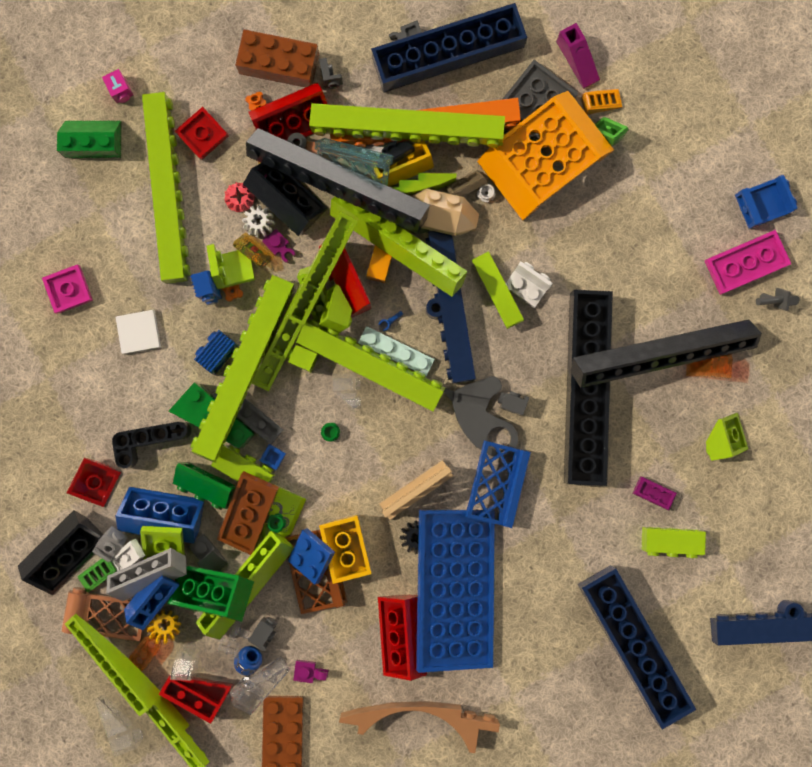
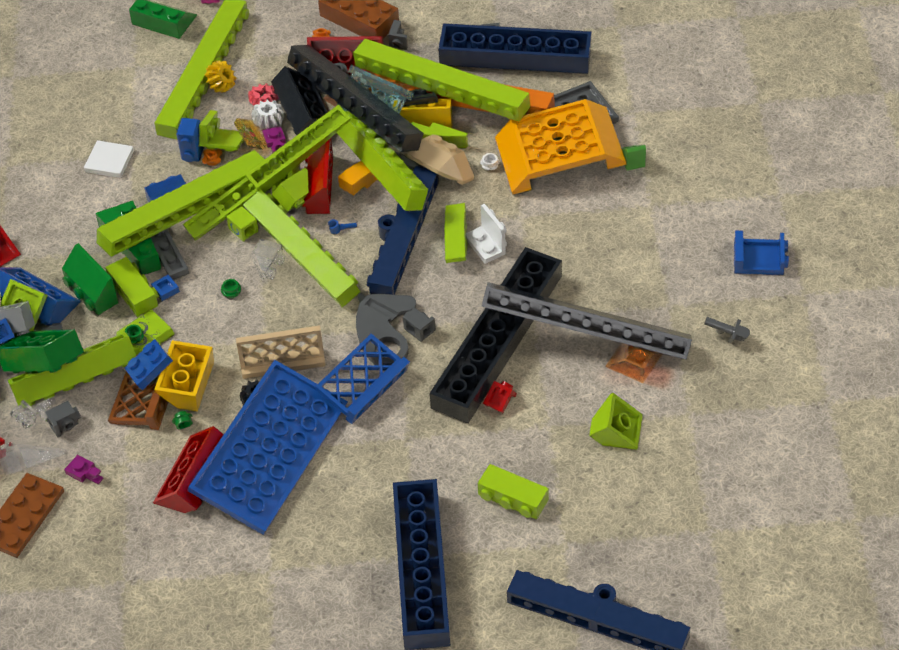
camera: 30 degrees right, 35 degrees down
(67, 289) = (69, 108): dark pink plate -> none
(152, 438) = (58, 231): black beam -> none
(191, 196) = (220, 76): none -> yellow gear
(201, 133) = (259, 42): red plate -> none
(247, 513) = (114, 311): dark orange plate -> none
(248, 660) = (33, 431): blue head -> none
(365, 588) = (182, 420): none -> green plate
(397, 351) = (339, 253): light aqua plate -> none
(465, 723) = (208, 568): medium nougat slope -> none
(466, 184) = (475, 150): dark tan plate -> none
(578, 55) = (633, 89): magenta slope -> none
(587, 104) = (627, 131): light orange slope -> none
(618, 448) = (499, 396): none -> red bracket
(654, 493) = (517, 447): magenta plate -> none
(747, 262) = (716, 294): dark pink plate -> none

